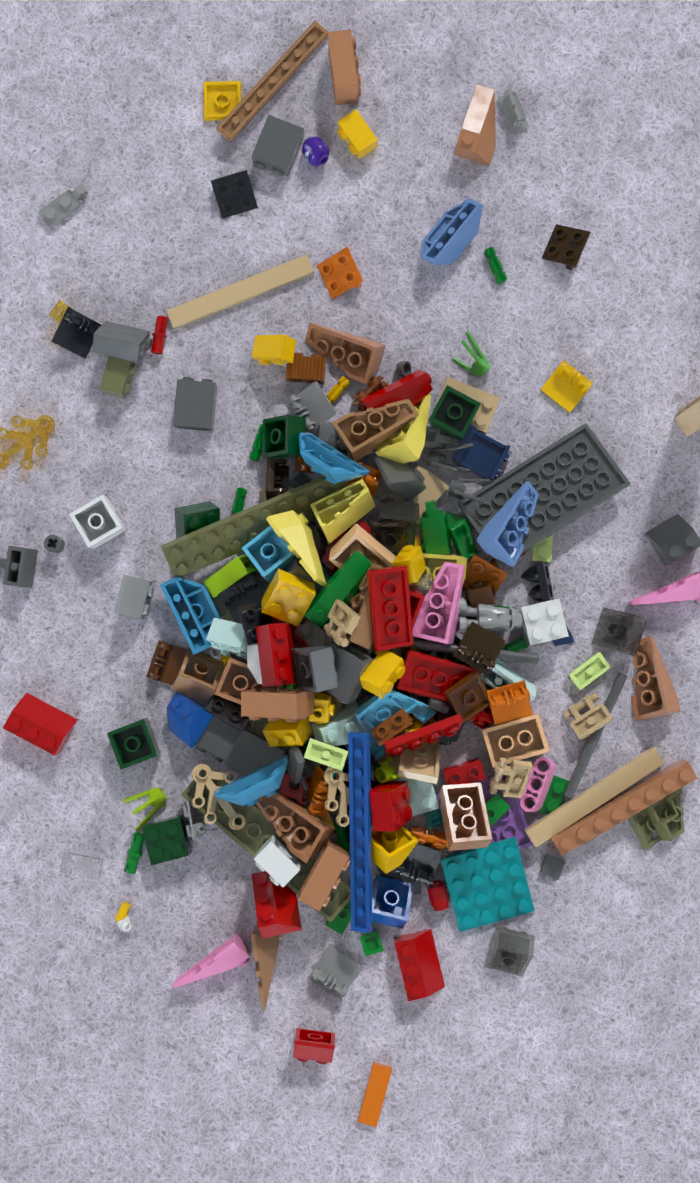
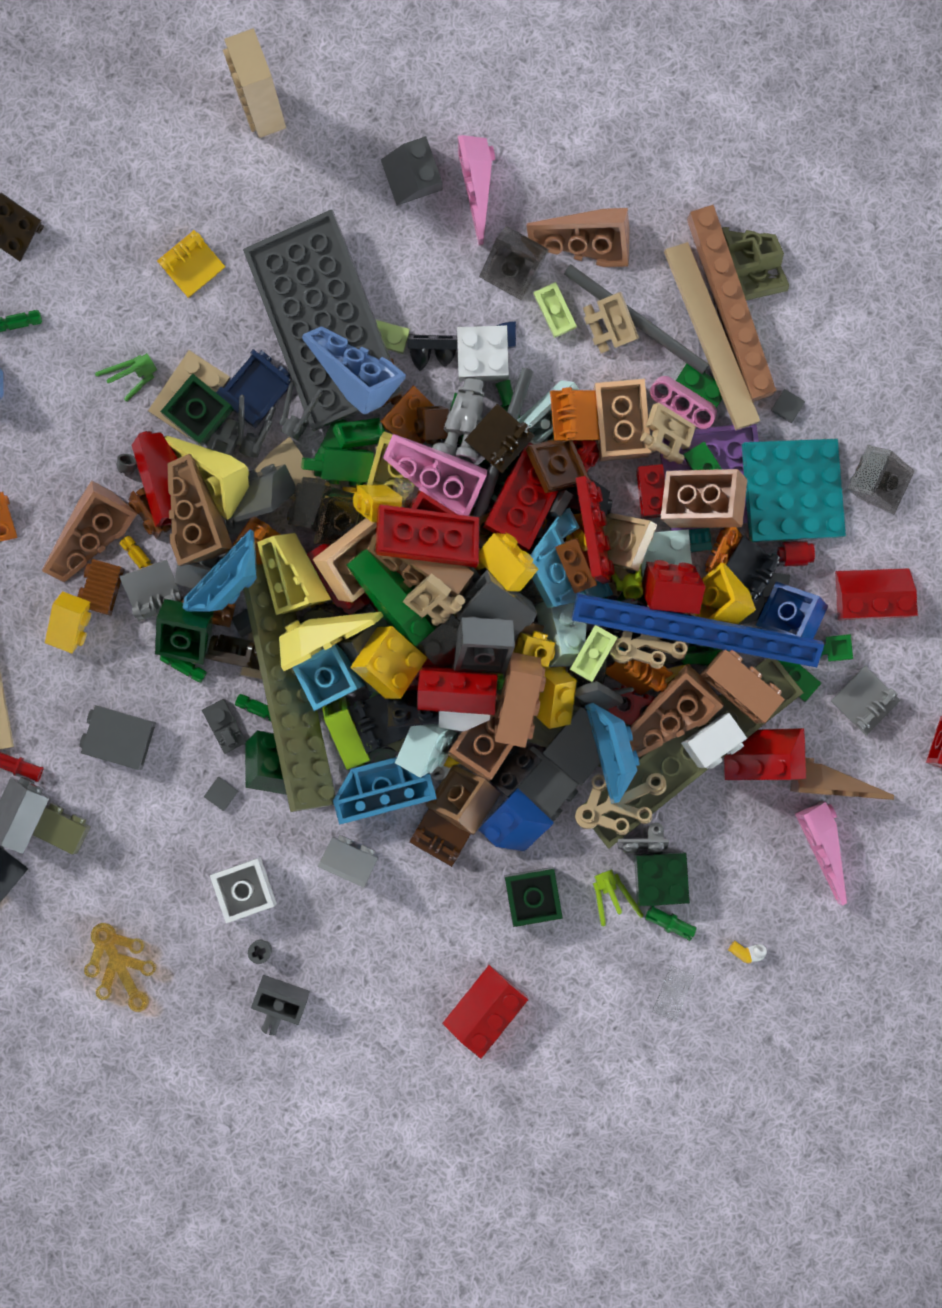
camera: 80 degrees left, 0 degrees up
(168, 490) = (221, 793): none -> dark grey tile
(219, 482) = (224, 726): none -> dark grey hinge

